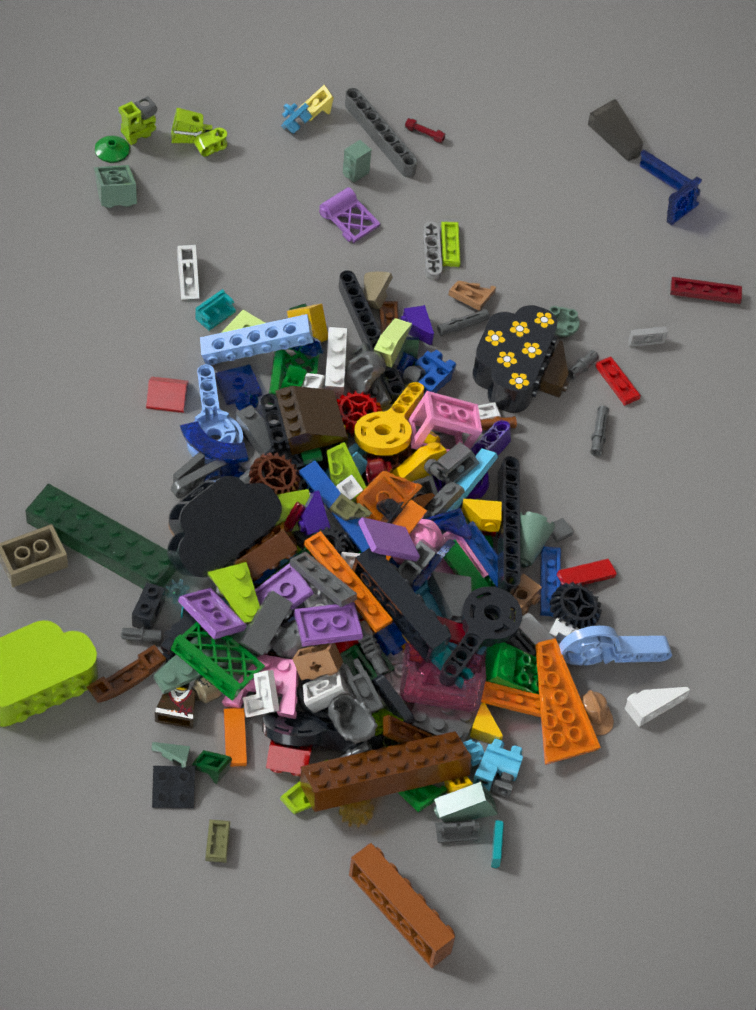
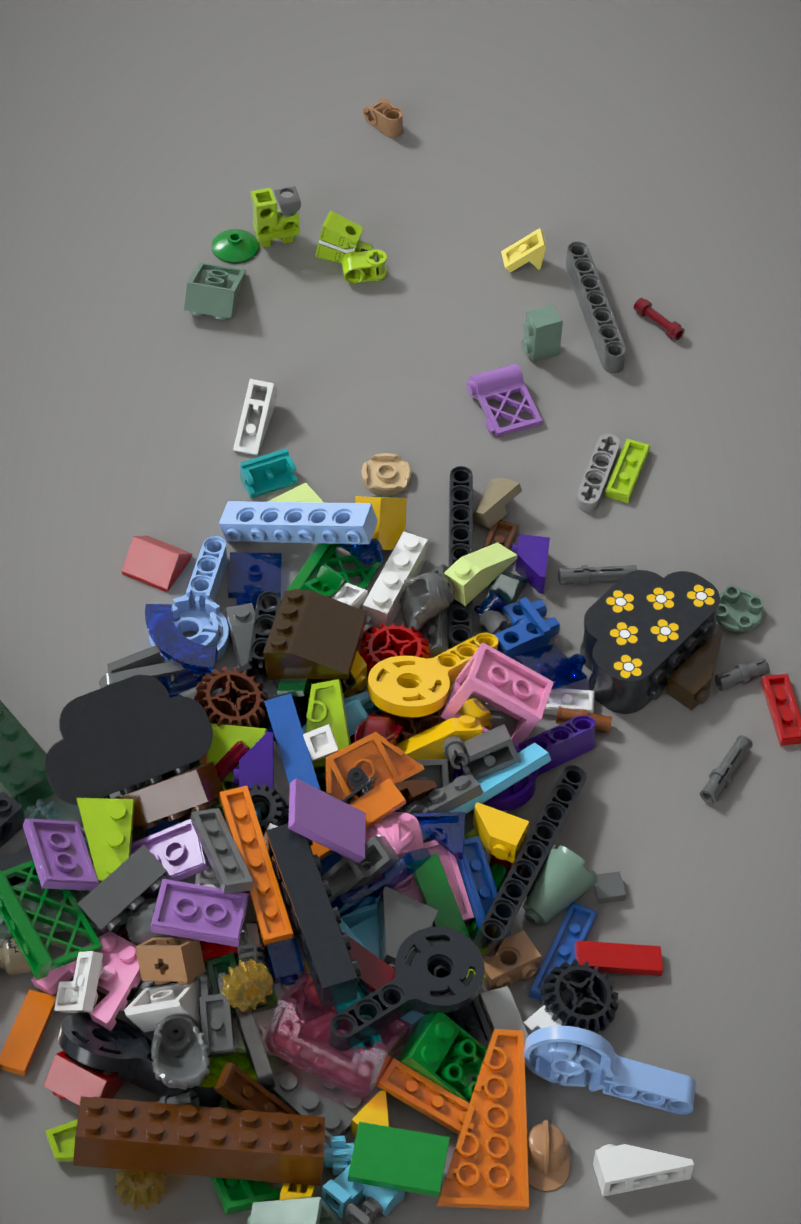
camera: 25 degrees right, 5 degrees down
(176, 26) = (385, 117): none -> medium nougat piece
(290, 123) = (479, 265): dark azure hips -> none
(293, 289) = (386, 474): none -> tan tile
(347, 509) = (303, 767): olive slope -> none
(379, 661) = (247, 985): none -> clear yellow gear
(464, 391) = (554, 665): none -> clear blue hinge
(471, 293) = (626, 541): medium nougat wing -> none
(513, 743) = (398, 1159): none -> green tile

